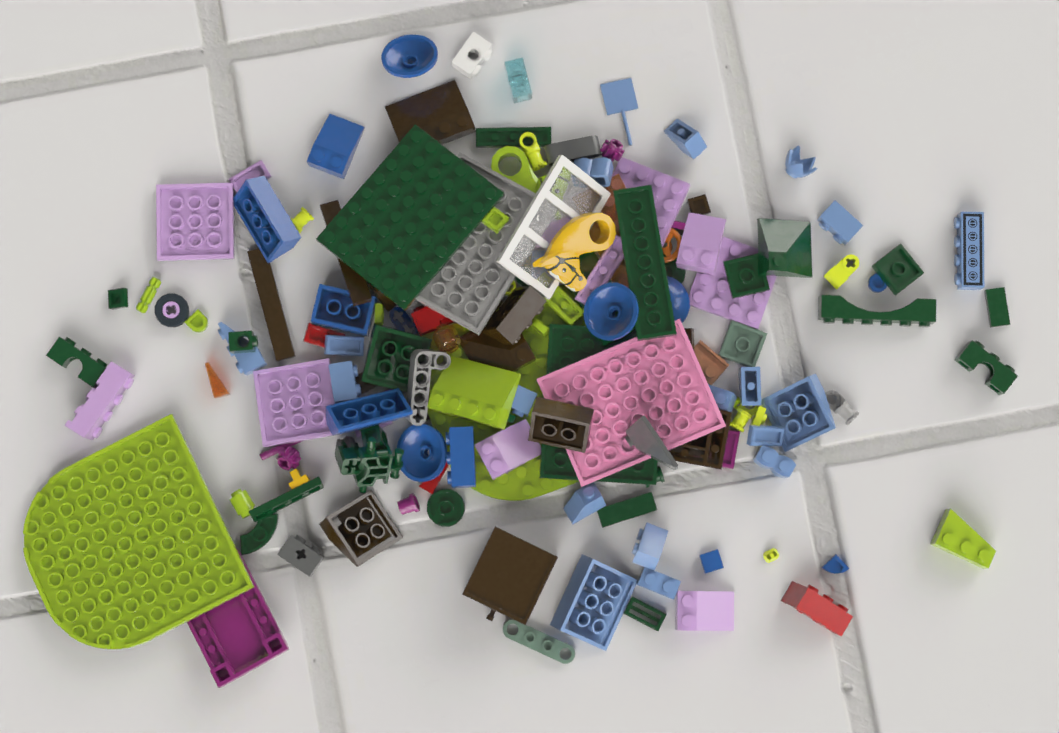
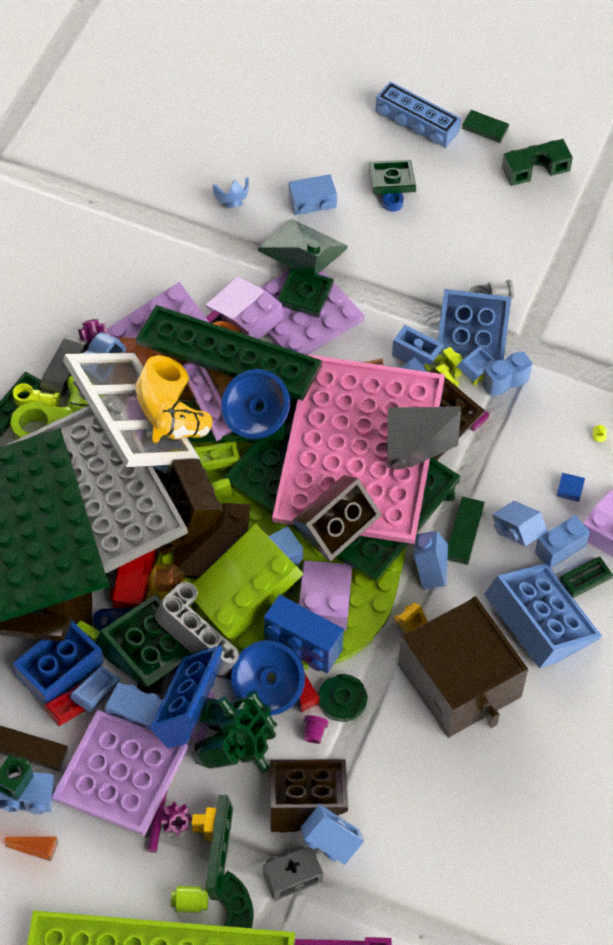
camera: 55 degrees left, 25 degrees down
(336, 566) = (331, 834): none -> medium blue brick
(495, 220) = (81, 454): lime tile -> none
(531, 518) = (411, 618): none -> yellow tile
(539, 641) = (549, 692): sand green plate -> none
(618, 98) = (47, 302): medium blue piece -> none
(686, 138) = (132, 266): medium blue slope -> none
(699, 205) = (203, 295): dark brown tile -> none
(742, 344) = (368, 337): sand green tile -> none
(836, 308) = (394, 240): dark green arch -> none
(839, 273) = (360, 217): neon yellow piece -> none

